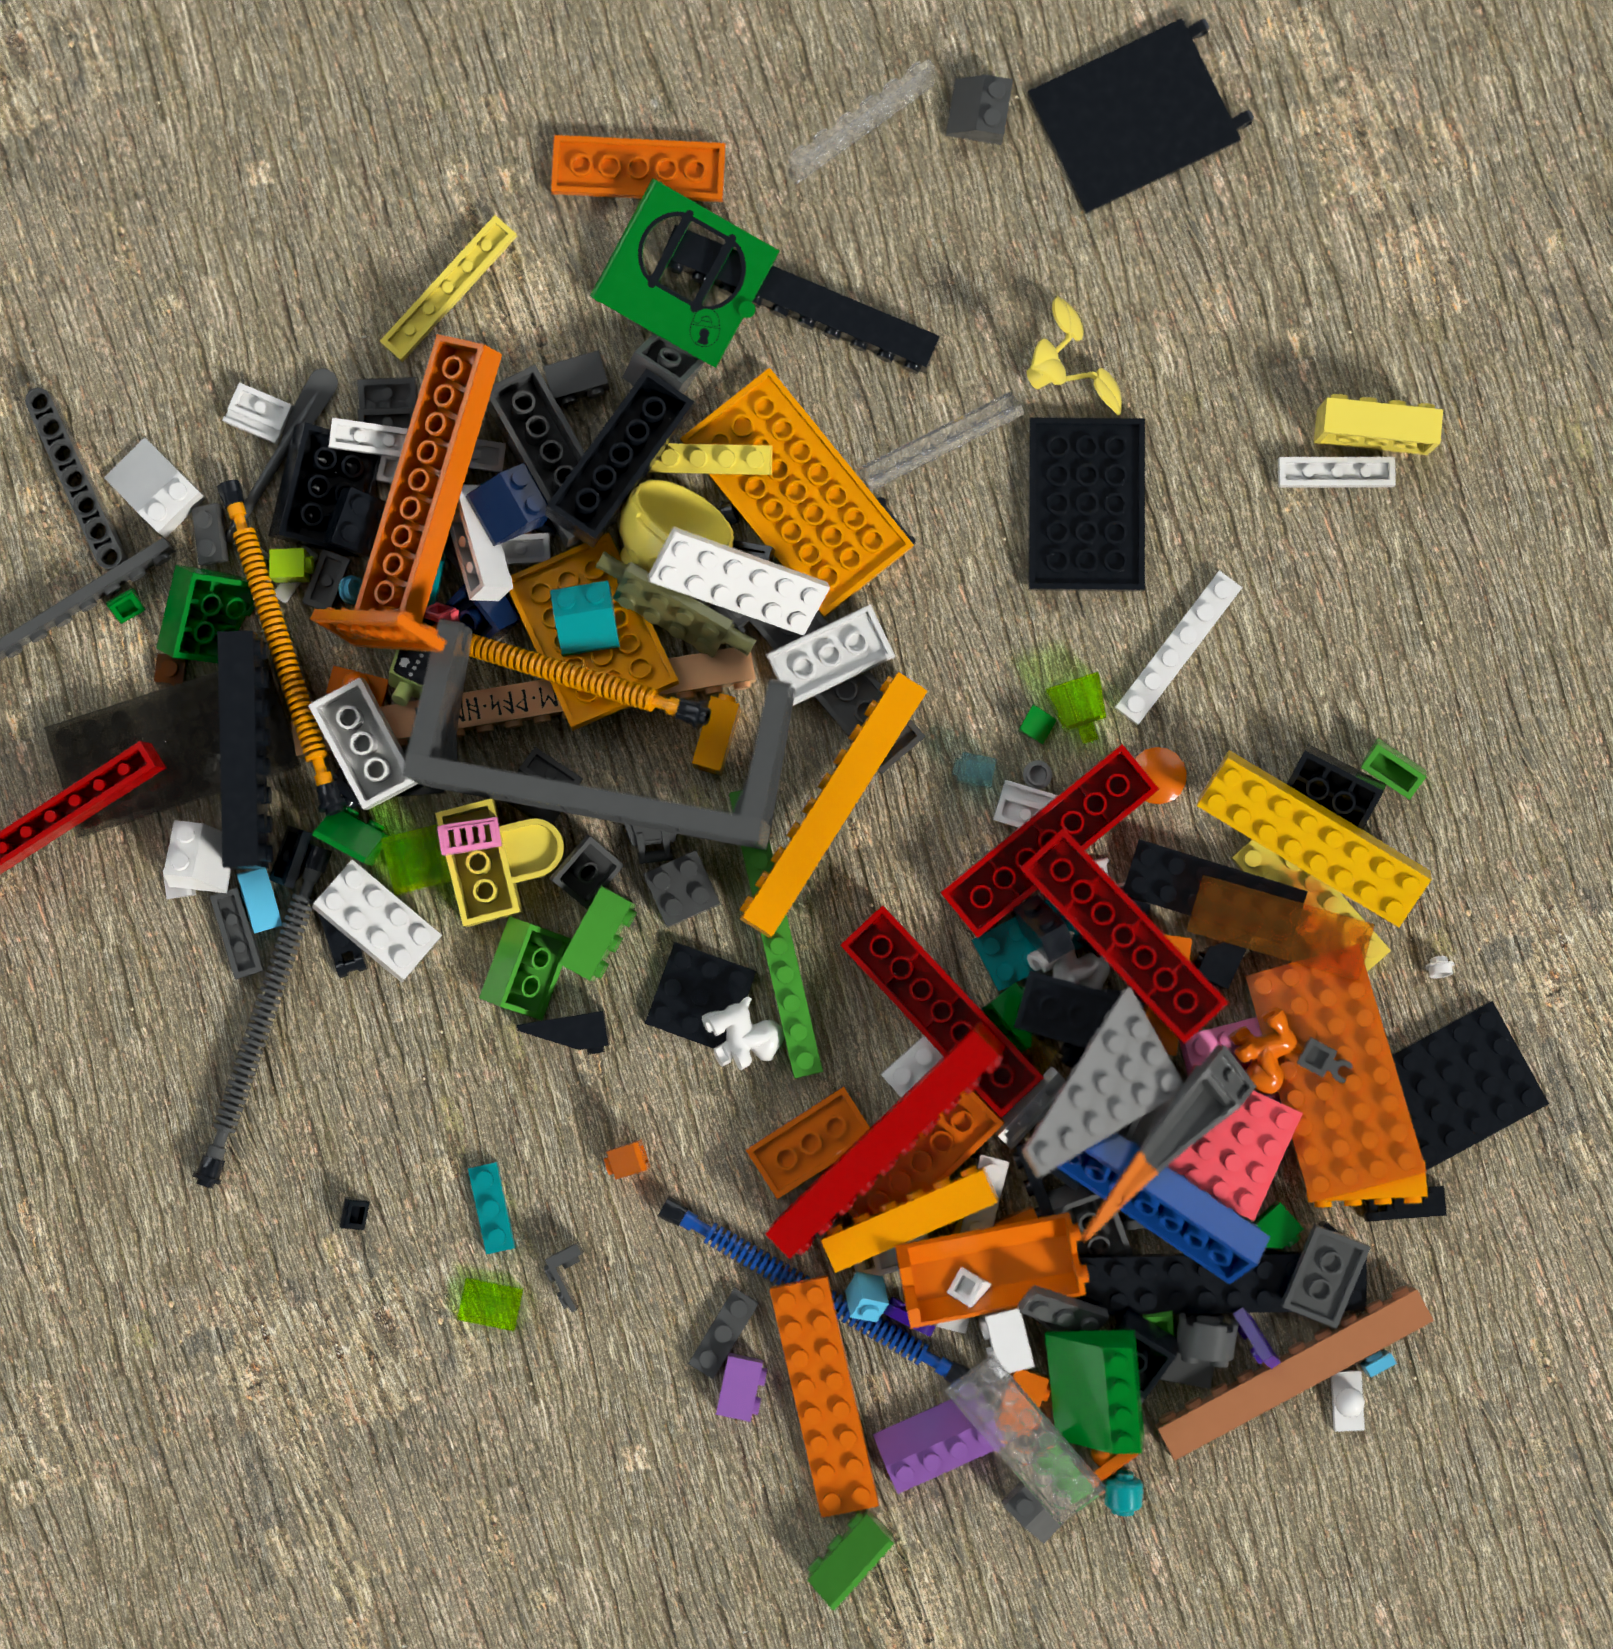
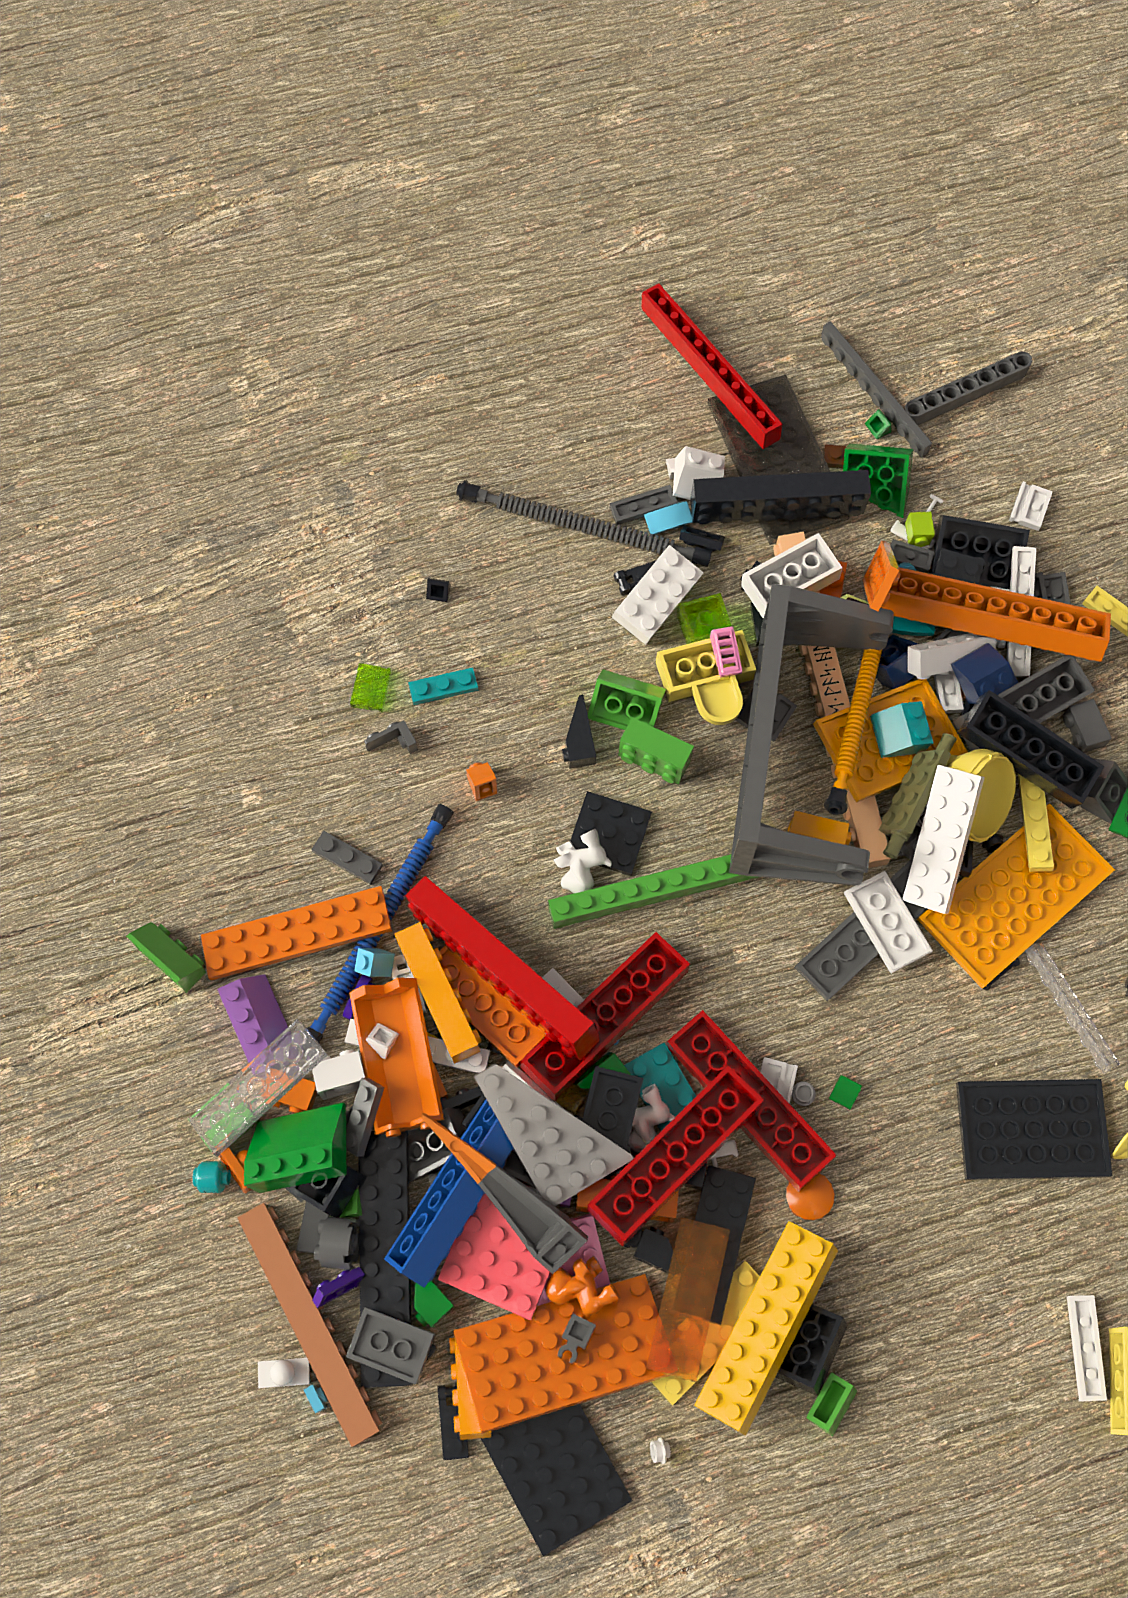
camera: 85 degrees right, 15 degrees down
(154, 488) = (965, 441): white slope -> none
(210, 534) = (936, 477): dark grey plate -> none
(281, 648) = (859, 521): light orange hose -> none
(307, 408) = (1043, 542): dark grey piece -> none
(352, 835) = (721, 574): green slope -> none
(440, 611) = (894, 638): coral slope -> none
(586, 871) = (709, 743): dark grey slope -> none
(645, 836) = (732, 786): dark grey piece -> none
(682, 889) = (693, 814): dark grey brick -> none
(740, 1387) = (304, 869): medium lavender brick -> none
(808, 1142) = (497, 912): orange plate -> none
(833, 804) = (770, 923): light orange brick -> none
(974, 770) = (803, 1041): clear light blue brick -> none
(1030, 1512) = (194, 1099): dark grey slope -> none
(1043, 928) = (677, 1092): black brick -> none
(1078, 705) = (864, 1125): clear neon green torso -> none
(1178, 648) = (920, 1211): white plate -> none

